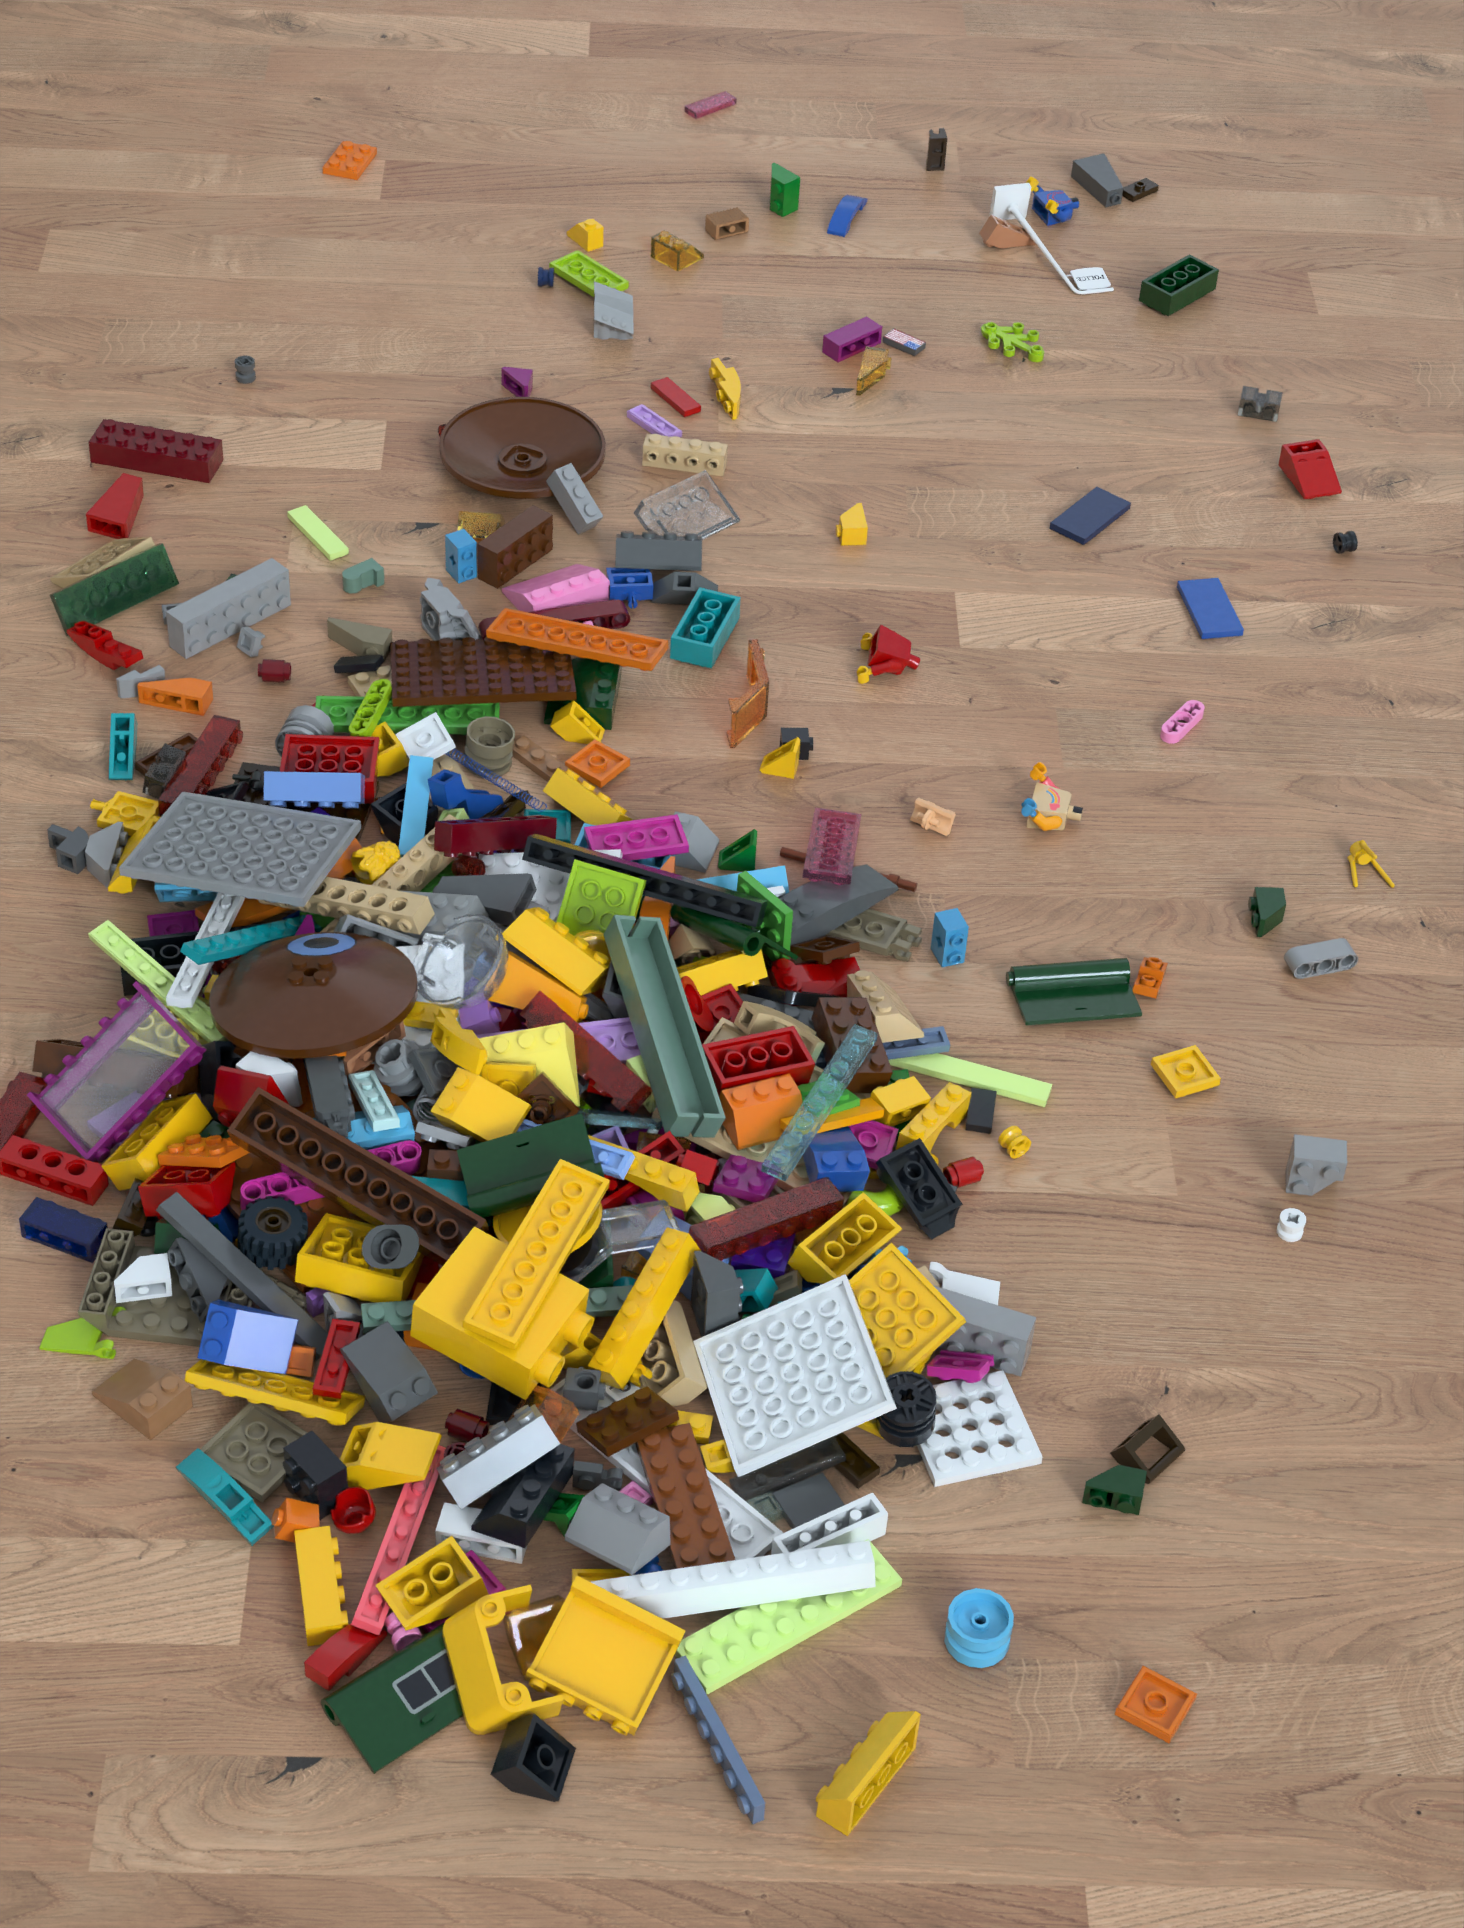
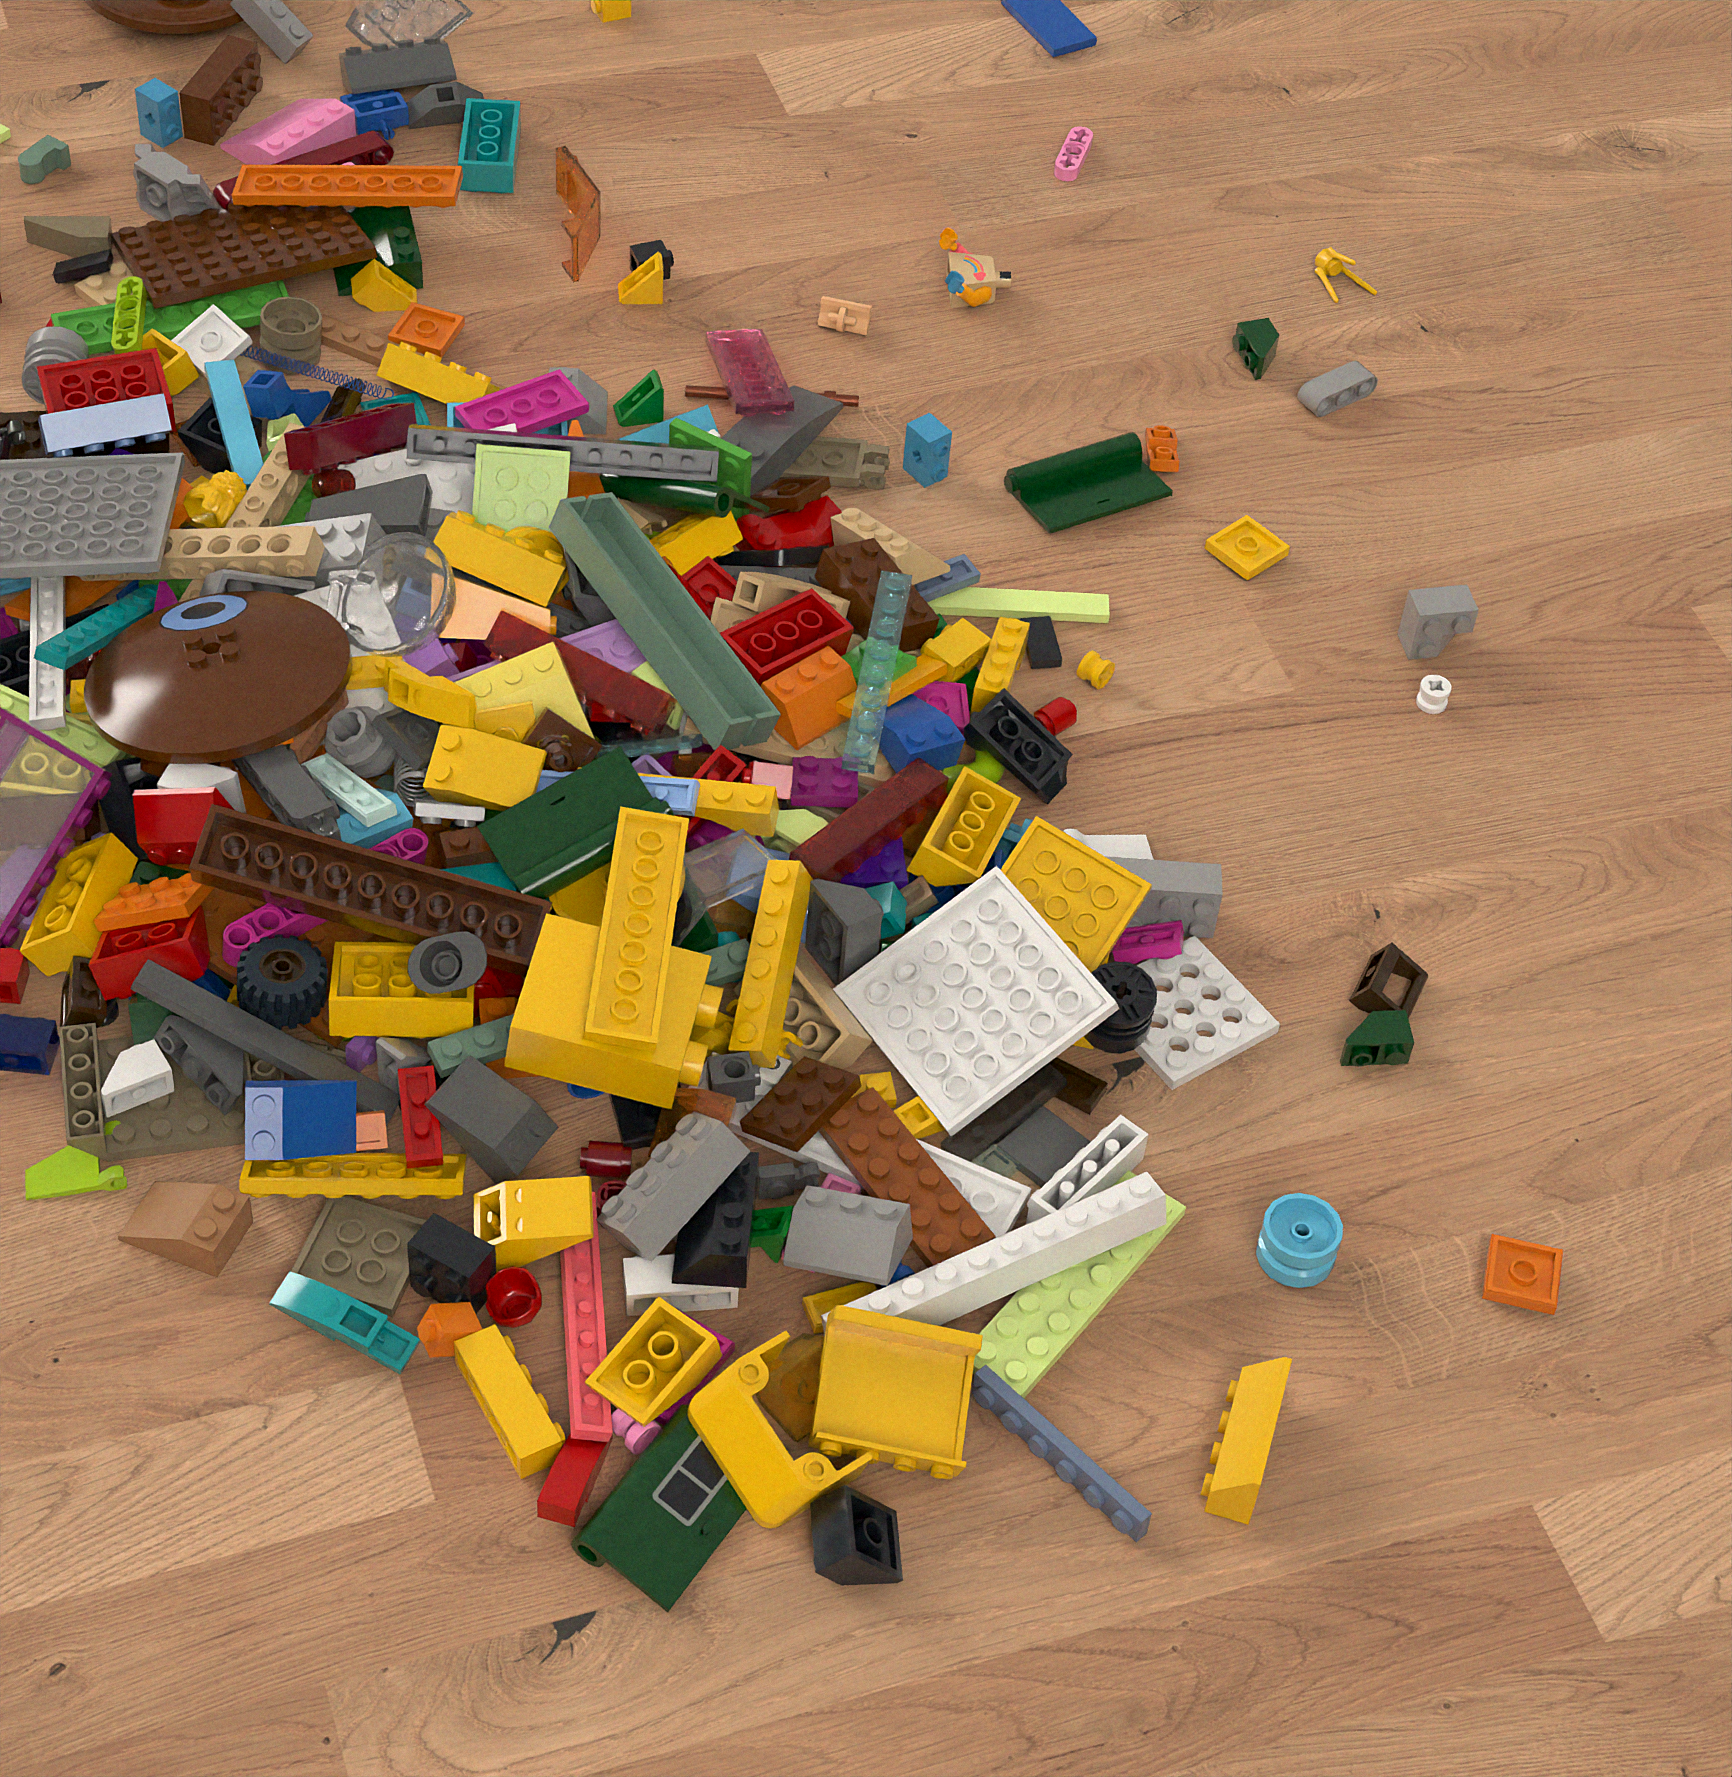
camera: 20 degrees left, 5 degrees up
(479, 524) = (170, 69): clear yellow slope -> none
(887, 654) = (714, 137): red torso -> none

